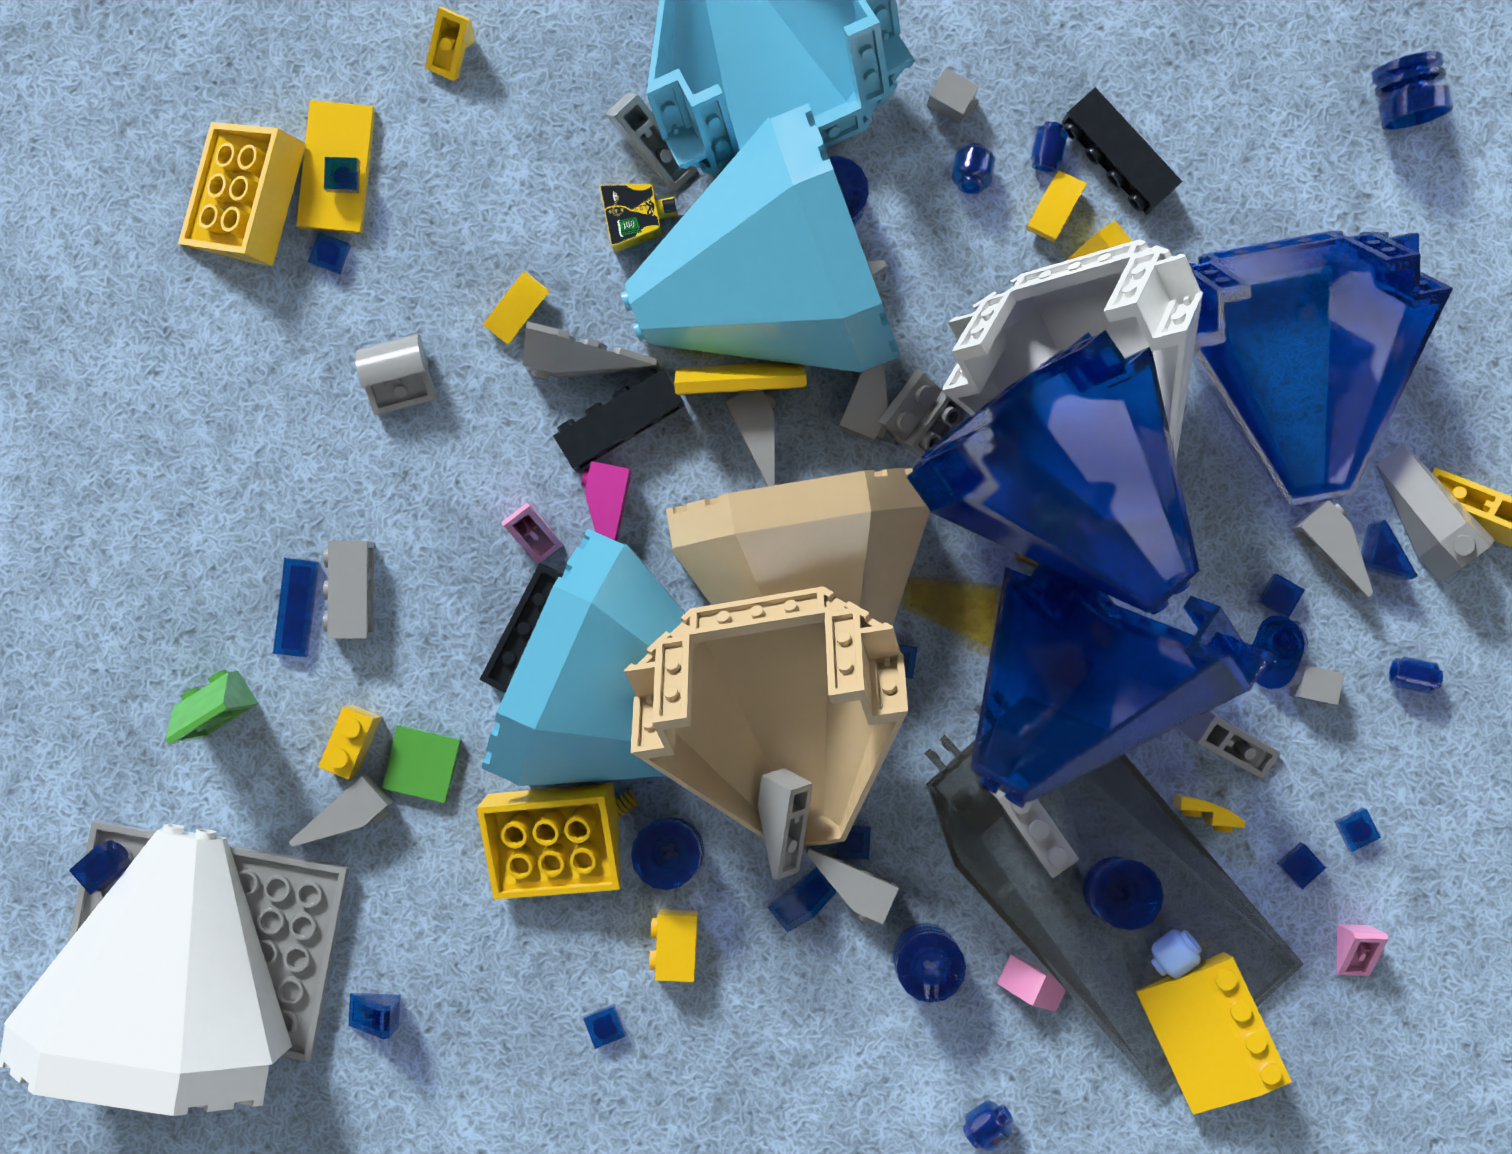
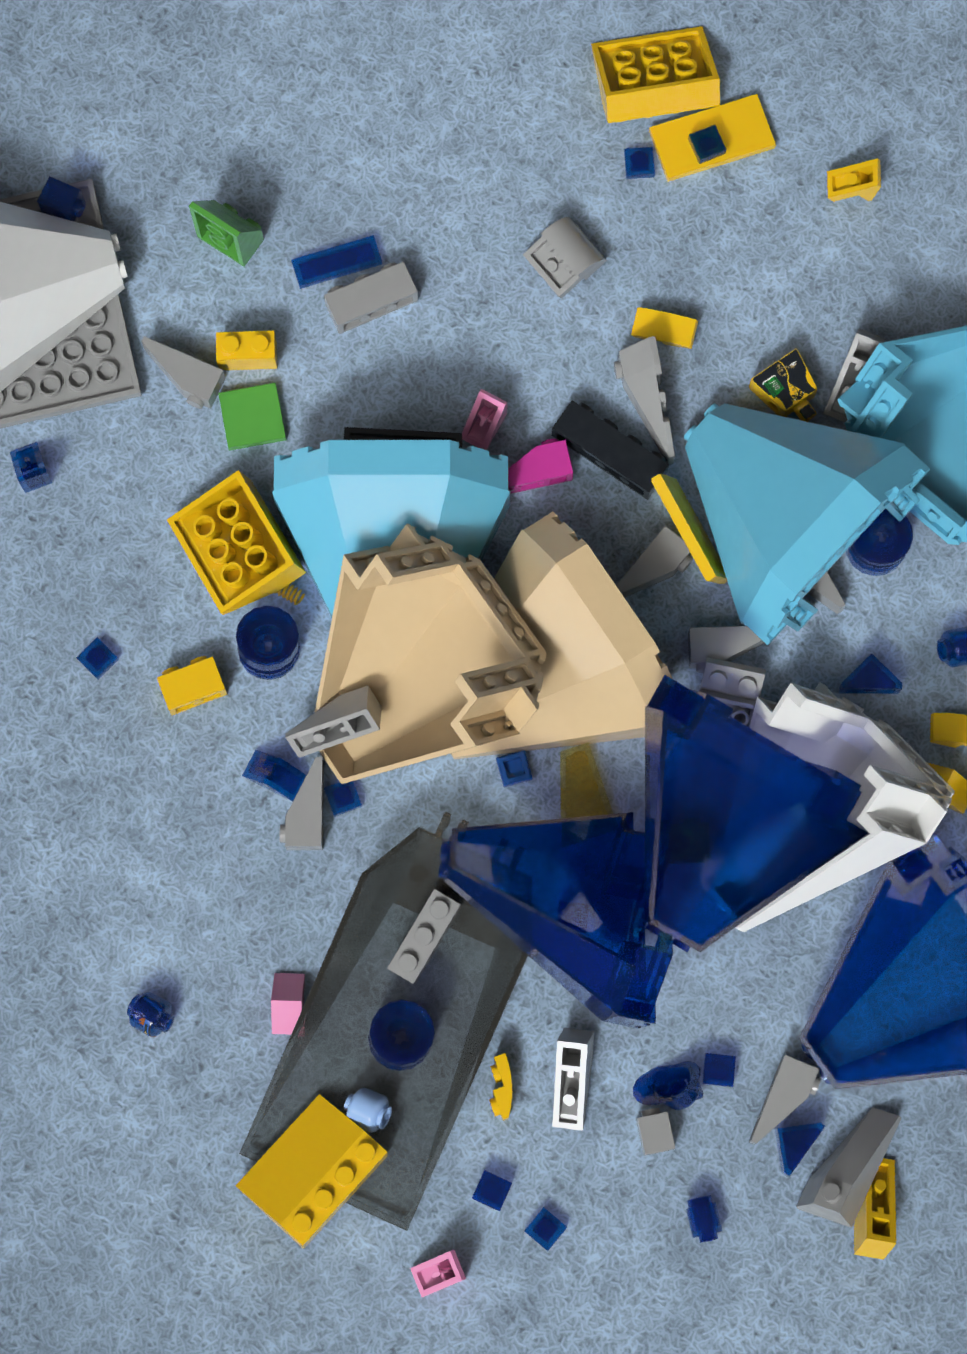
camera: 65 degrees right, 10 degrees down
(936, 945) = (277, 914): clear blue wheel -> none
(964, 270) = (871, 678): none -> clear blue slope

